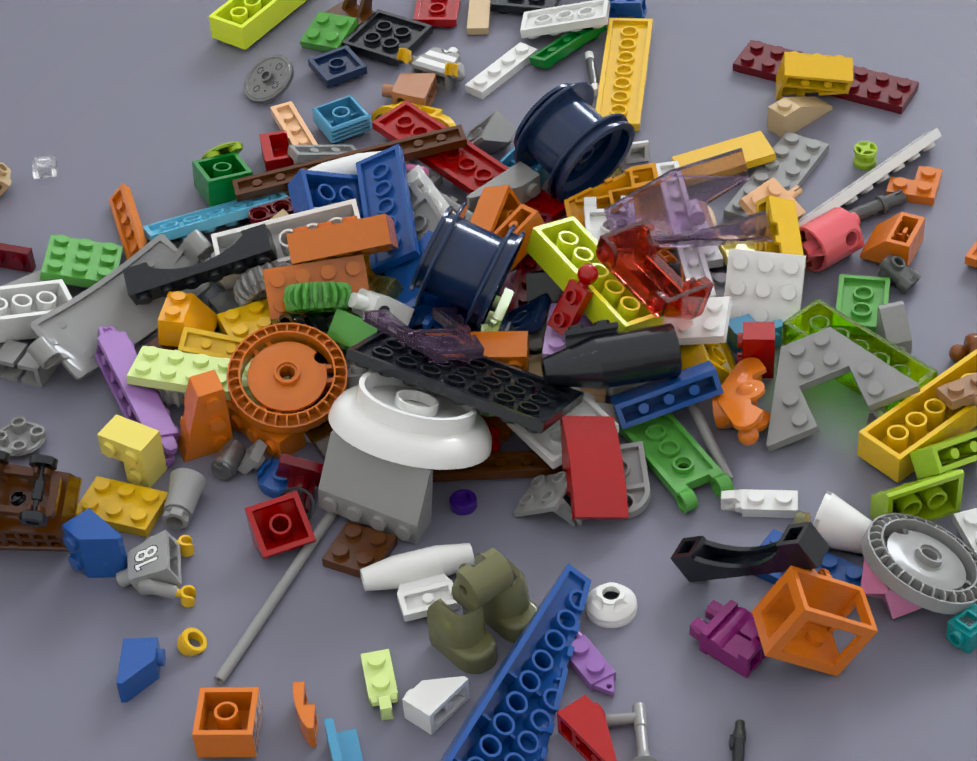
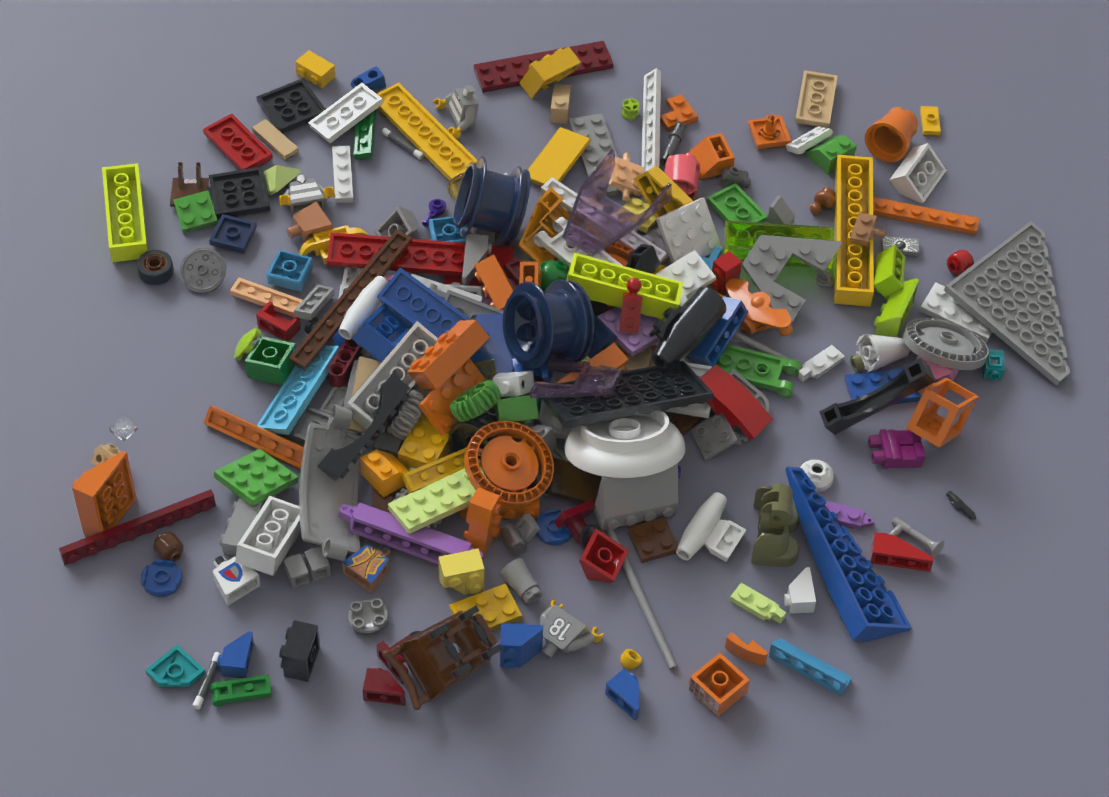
camera: 50 degrees left, 10 degrees up
(74, 397) = (368, 566): none -> torso
(235, 57) = (155, 267): none -> black wheel
(435, 37) = (278, 177): none -> yellowish green slope
(634, 262) = (680, 271): clear red windscreen -> none
(682, 70) = (462, 107): none -> light grey torso

